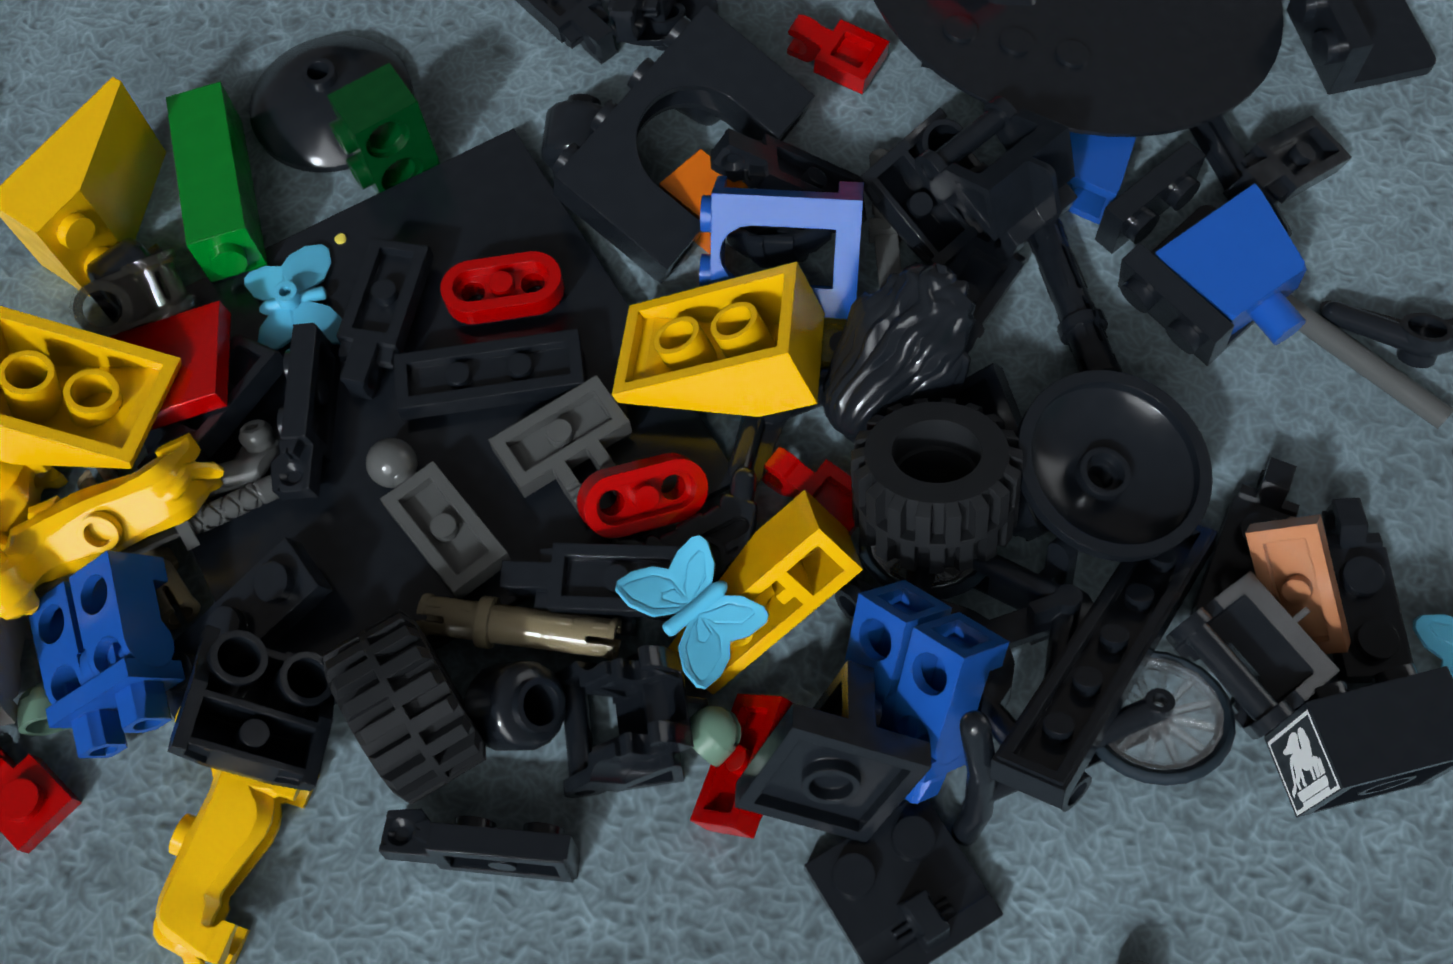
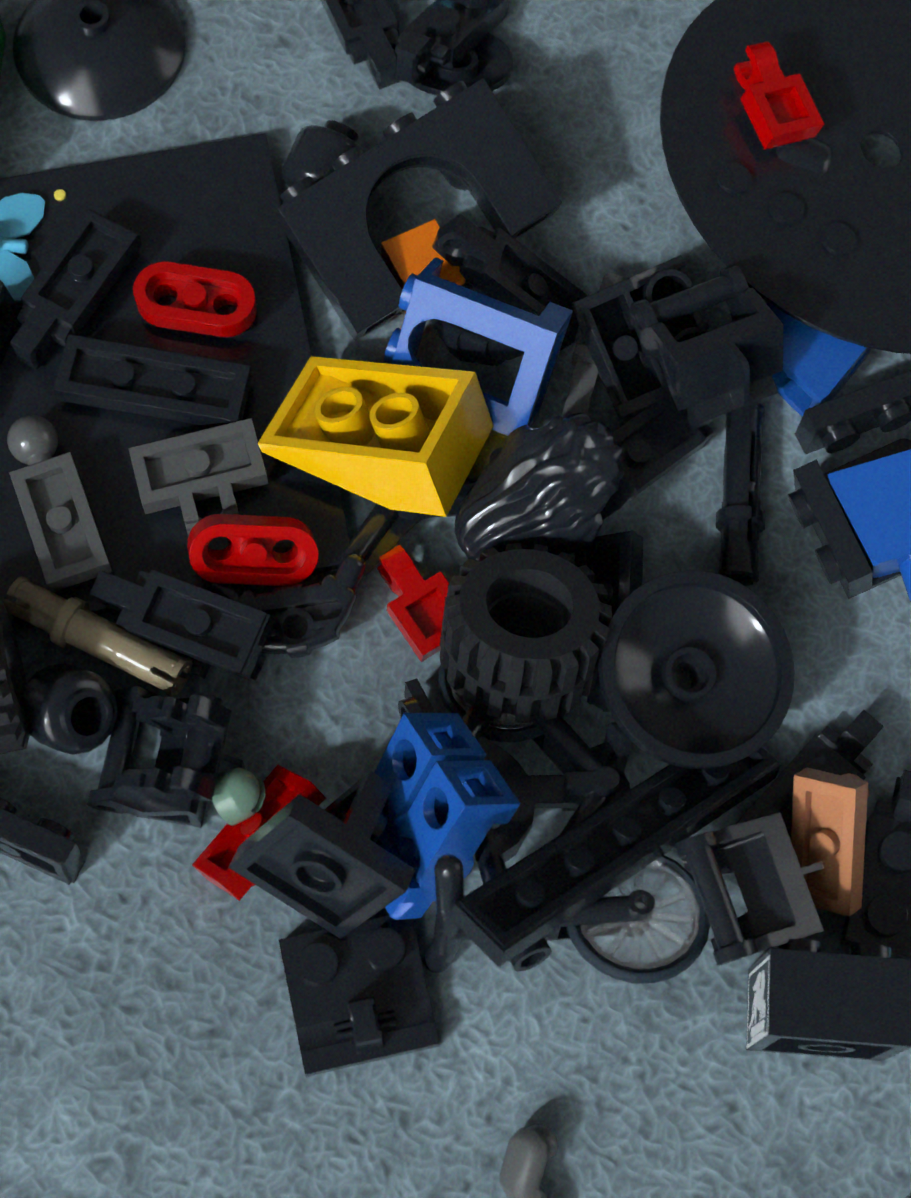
camera: 10 degrees right, 5 degrees up
(382, 129) = (130, 100): dark green brick -> none
(697, 602) = (262, 672): medium azure piece -> none
(791, 571) = (335, 679): yellow slope -> none
(842, 54) = (618, 160): red plate -> none

